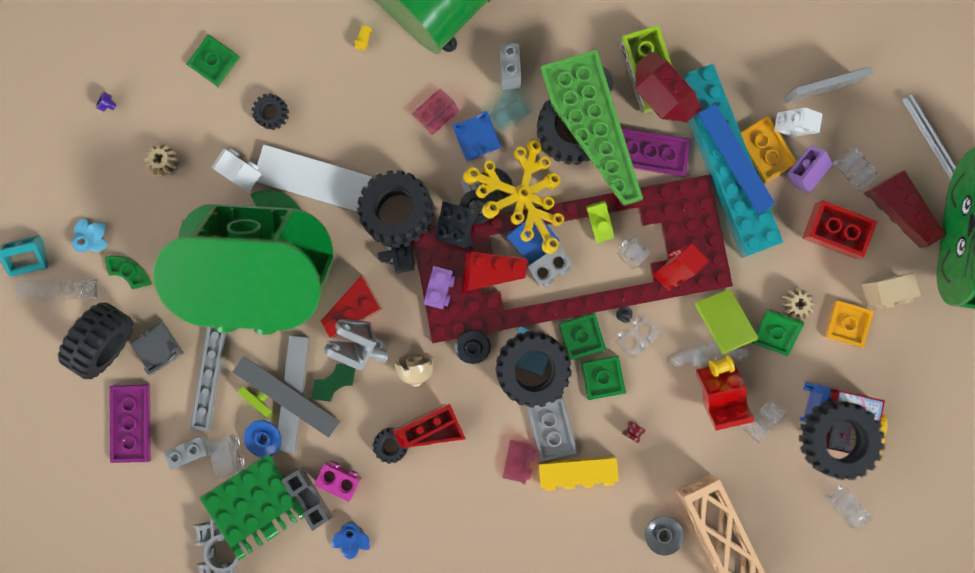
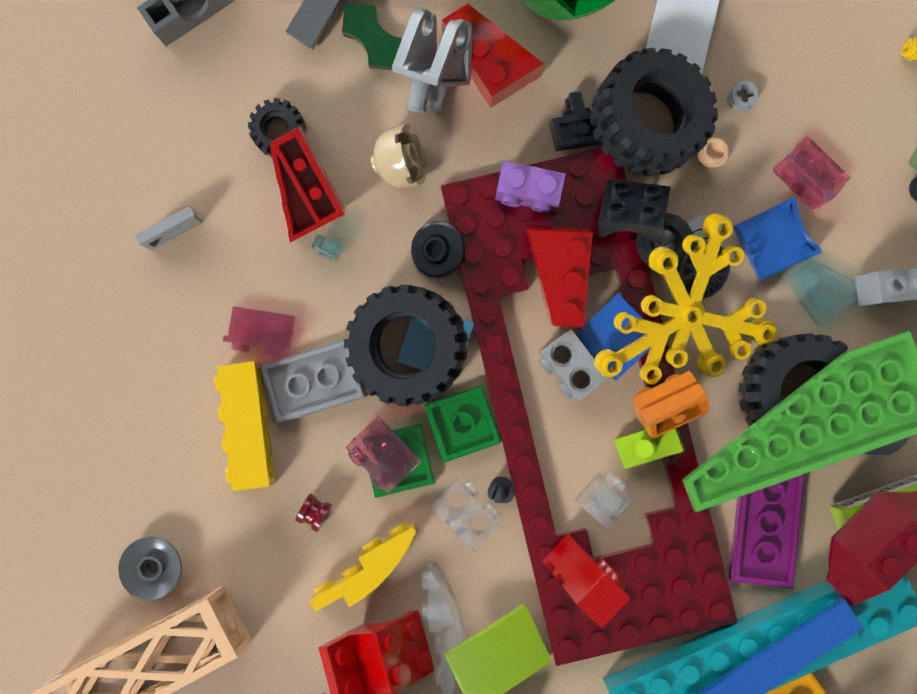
camera: 85 degrees right, 0 degrees up
(336, 486) = (210, 48): dark pink brick -> none
(350, 542) = (126, 77): blue plate -> none
(380, 155) = (750, 89): none -> light grey bush
(420, 170) = (714, 153): none -> light nougat plate
(451, 516) = (169, 228): none -> light grey tile
(469, 416) = (327, 248): none -> clear light blue tile
(577, 209) = (670, 404): none -> orange brick
(600, 387) = (382, 455): none -> clear pink bracket
(665, 393) = (377, 564): none -> yellow slope
(721, 365) = (425, 653): yellow bush -> none

